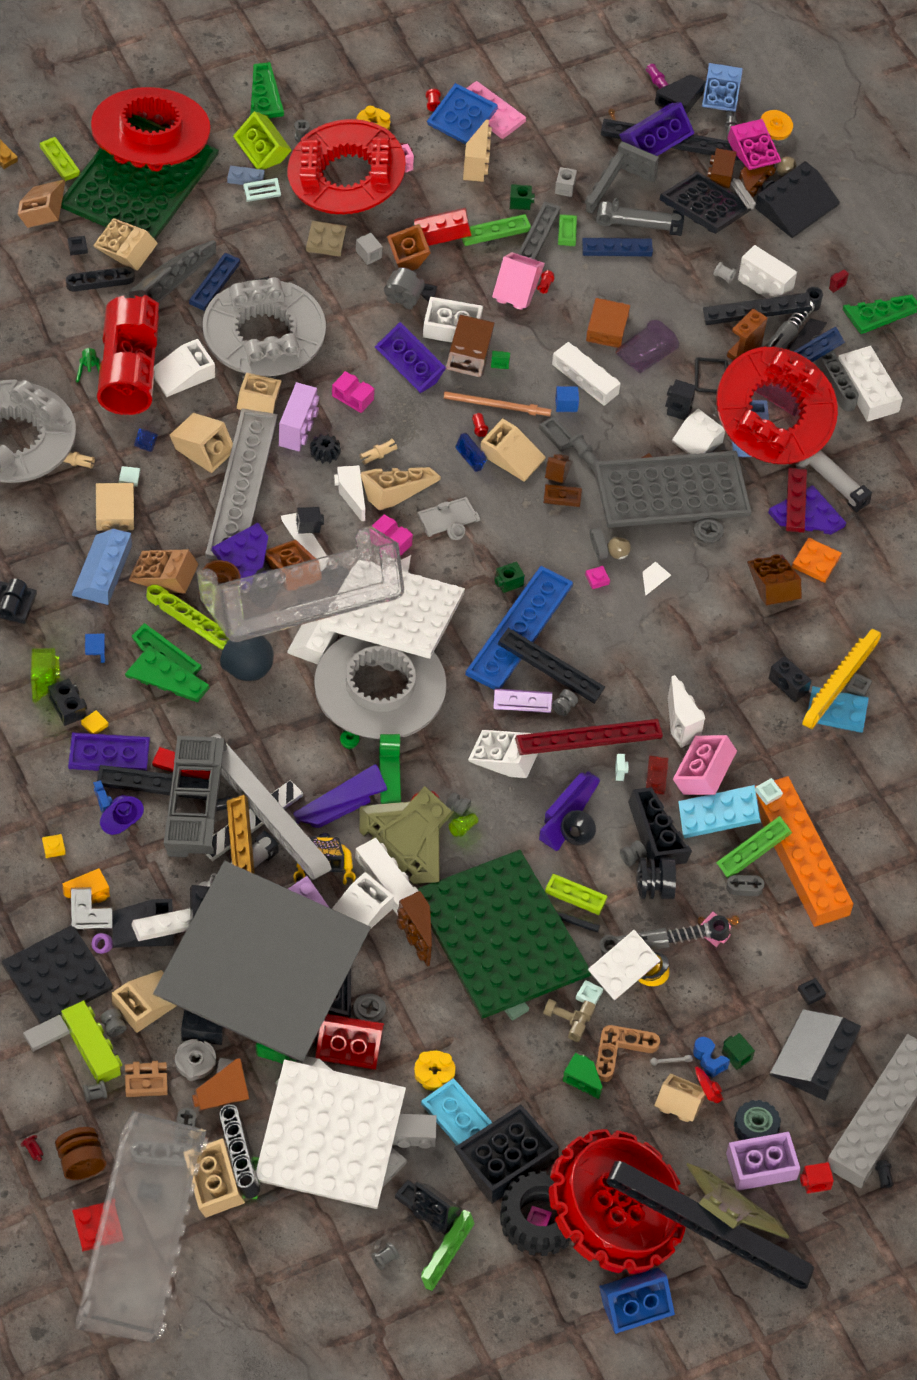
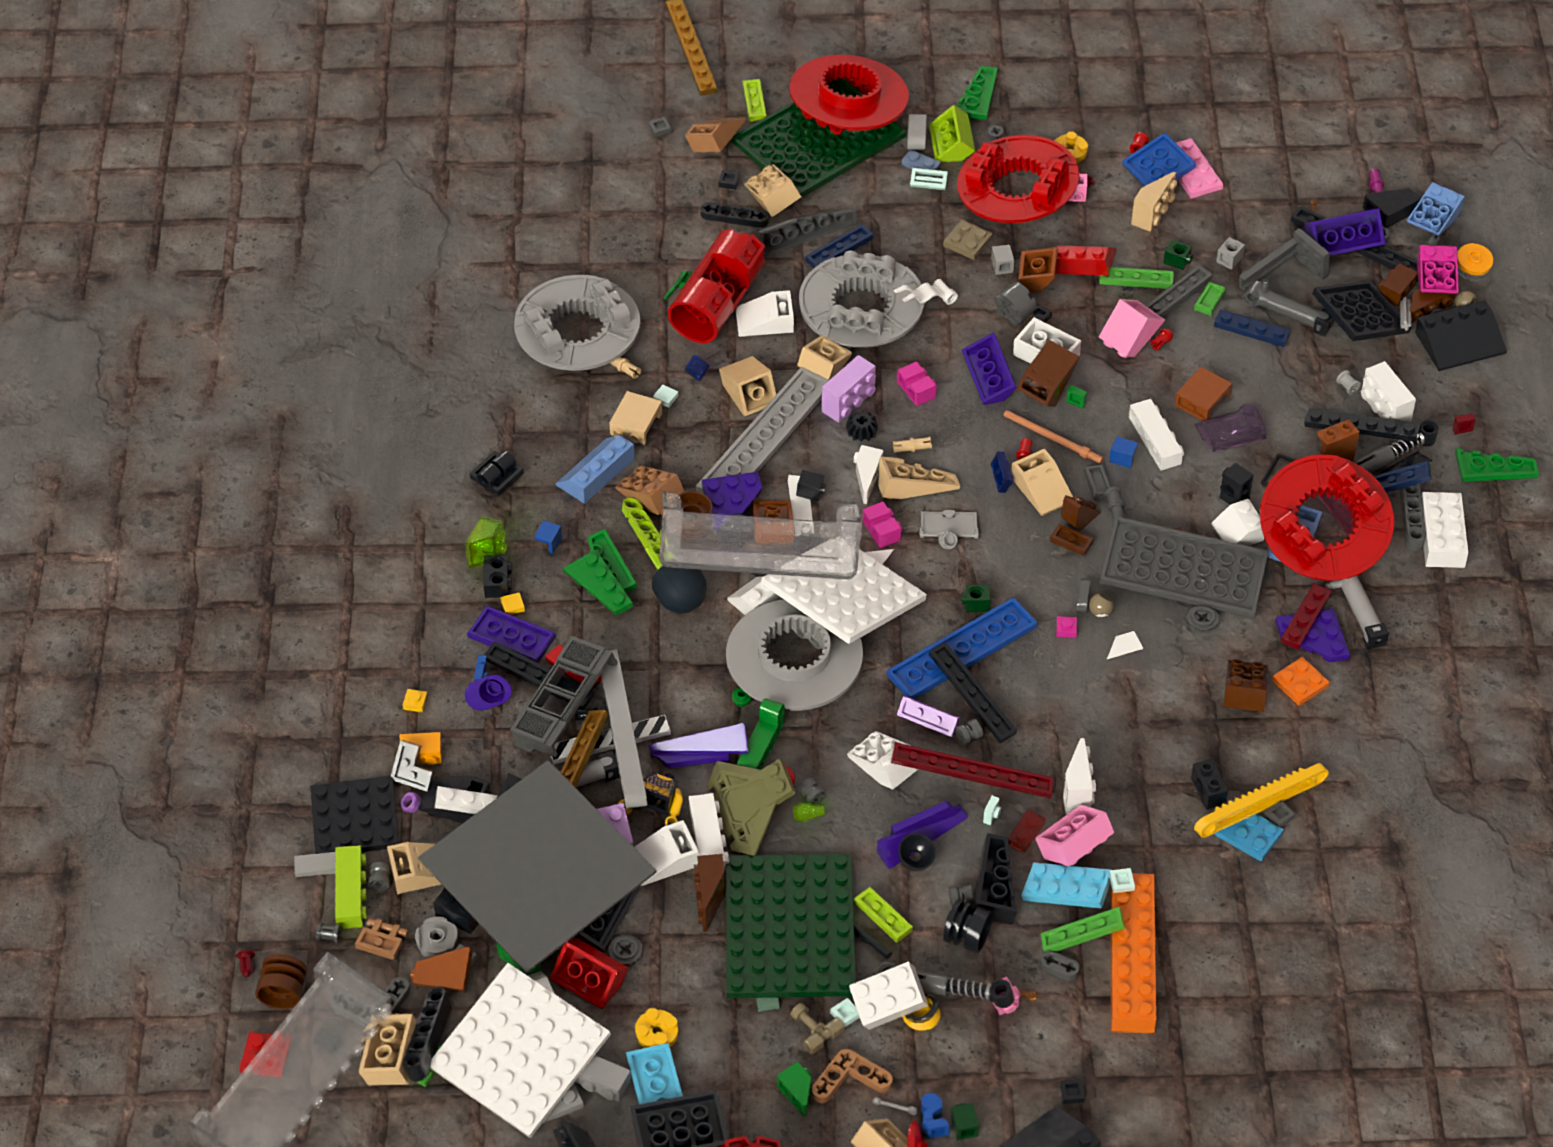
camera: 30 degrees right, 5 degrees down
(228, 146) = (916, 131): none -> light grey beam
(322, 299) = (927, 291): none -> white flag

